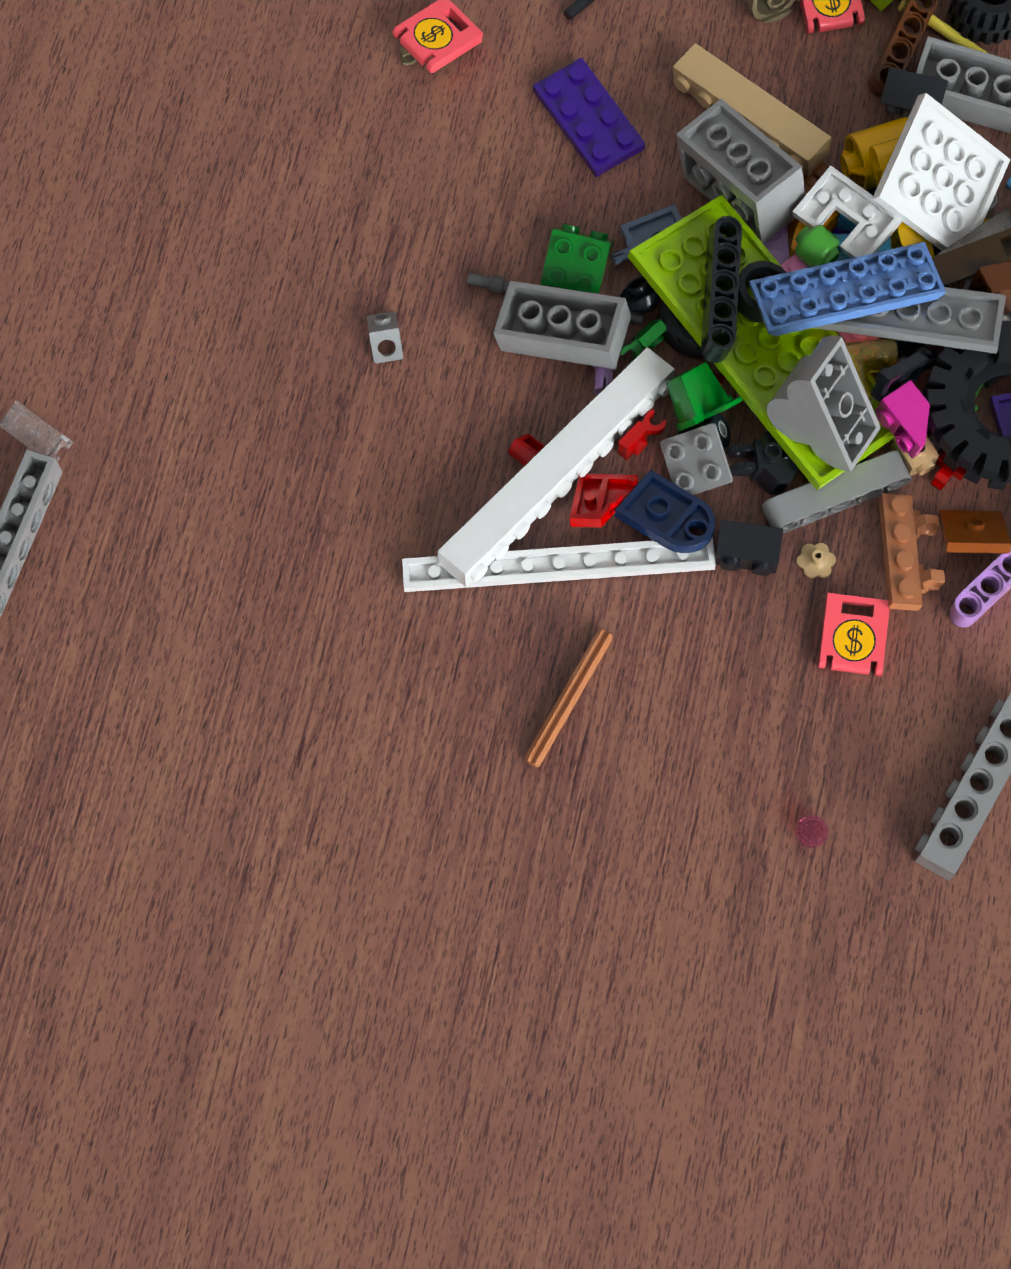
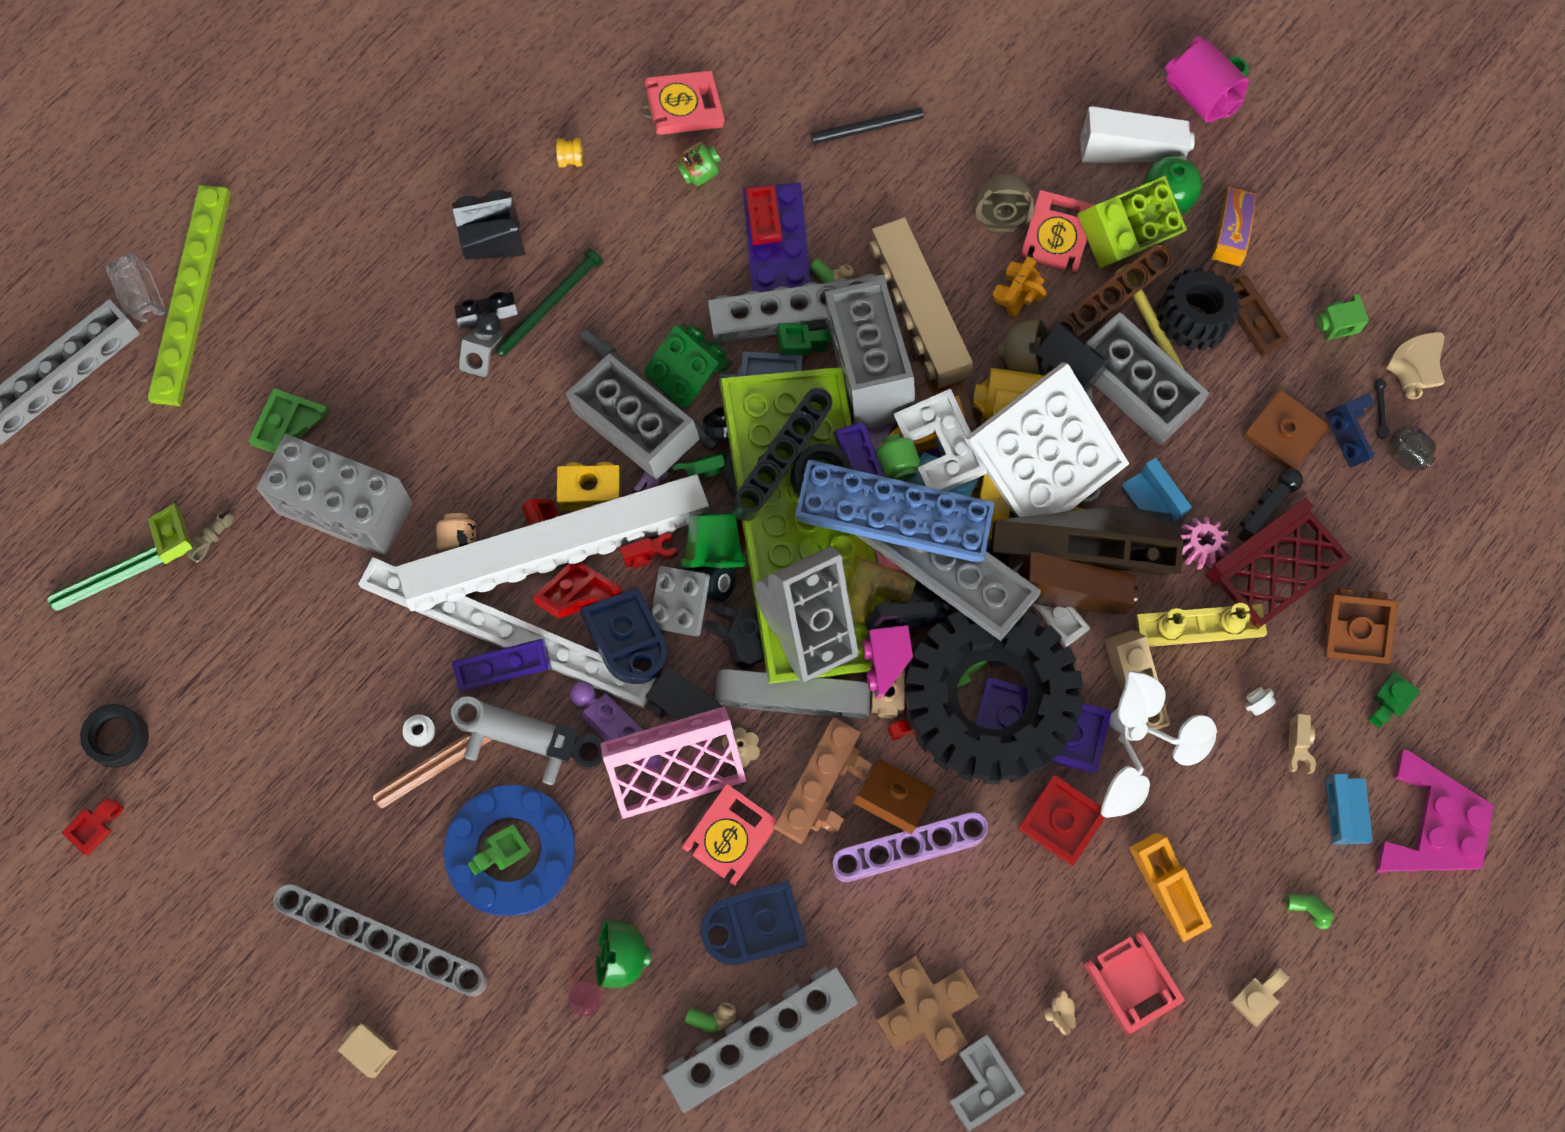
camera: 25 degrees right, 0 degrees up
(87, 416) = (189, 296): none -> lime plate
(169, 695) = (104, 579): none -> axle
(207, 628) = (169, 533): none -> lime plate
(240, 614) = (209, 535): none -> dark tan piece
(248, 482) = (285, 415): none -> bright green wing
(264, 801) = (95, 722): none -> black tyre
(292, 916) = (89, 827): none -> red plate
(331, 223) = (488, 226): none -> black piece
(341, 519) = (335, 495): none -> light grey brick
(360, 126) = (569, 152): none -> yellow wheel
(372, 299) = (486, 312): none -> black plate
(436, 210) = (591, 259): none -> dark green bar
(463, 502) = (455, 531): none -> light nougat head
(483, 82) = (699, 164): none -> bright green head
(532, 694) = (427, 734): none -> white plate
(548, 420) = (573, 477): none -> yellow brick
(570, 98) = (763, 215): none -> red plate
(573, 592) = (501, 665): none -> dark purple tile
(594, 212) = (782, 299): none -> light grey brick
(622, 863) = (368, 930): none -> light grey beam
(653, 968) = (366, 1049): none -> tan brick
(658, 126) = (827, 275): none -> bright green arm
(663, 192) = (798, 340): none -> green plate
(663, 632) = (531, 734): none -> light grey piece
(663, 788) = (542, 883): none -> blue plate
(668, 744) = (502, 848): none -> bright green plate
(701, 596) = (606, 717): none -> medium lavender plate
(763, 575) = (664, 739): none -> bright pink fence
(776, 250) = (858, 447): none -> dark purple plate
(823, 778) = (621, 954): none -> green cylinder
(824, 47) = (1024, 288): none -> light orange hips
(860, 106) = (1021, 344): none -> dark tan cylinder
(919, 696) = (757, 925): none -> dark blue plate
(931, 793) = (712, 1022): none -> arm

